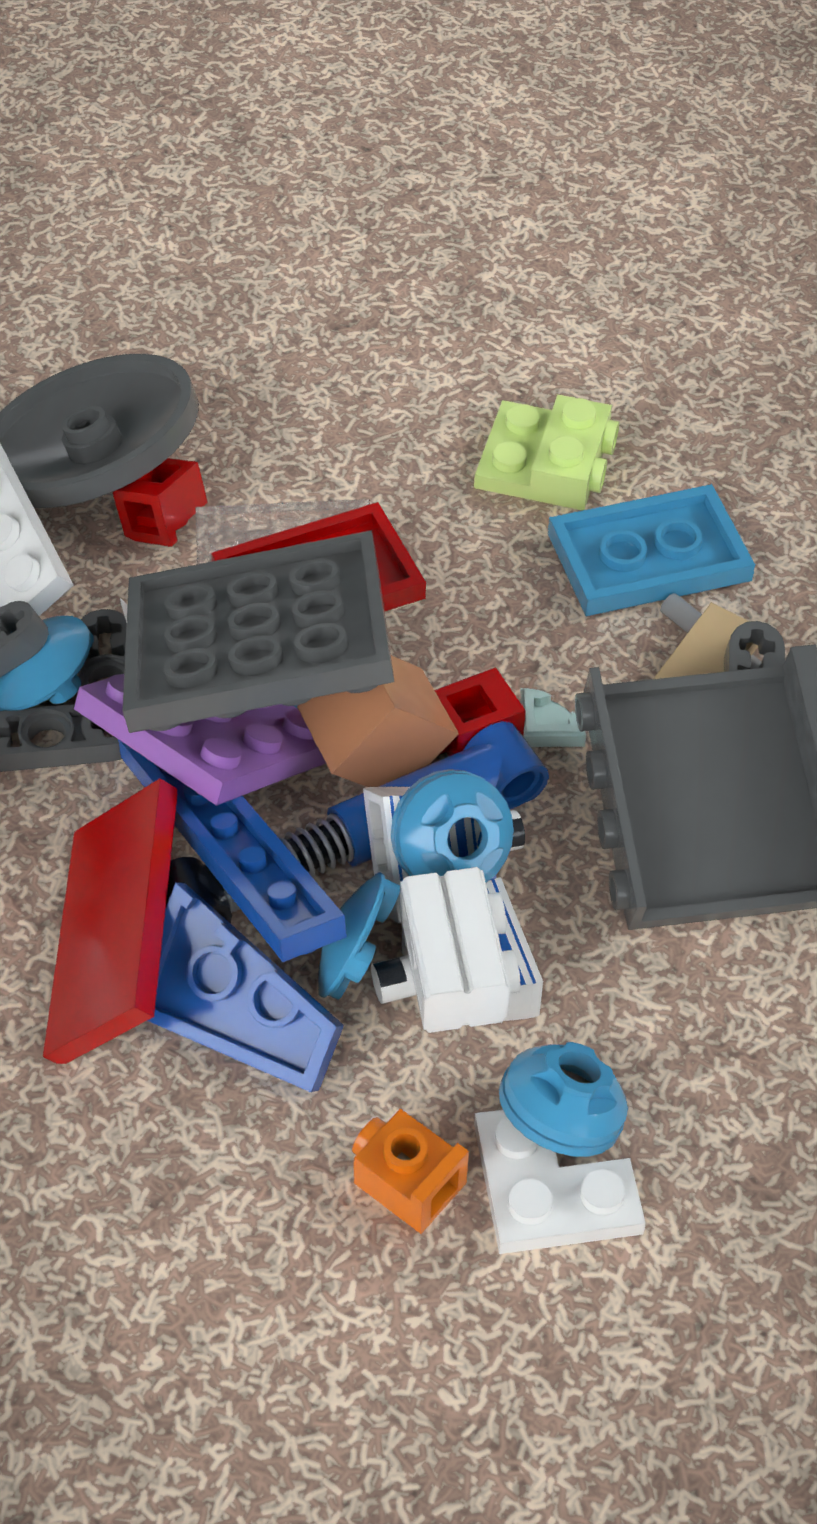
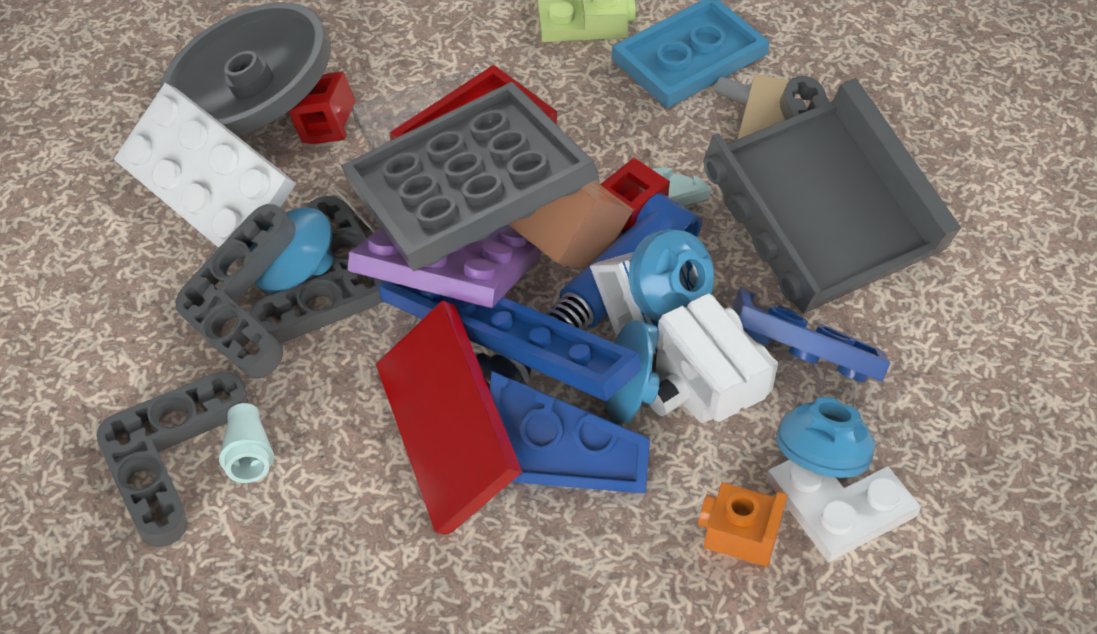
camera: 20 degrees left, 0 degrees up
(590, 947) = (782, 324): none -> wing

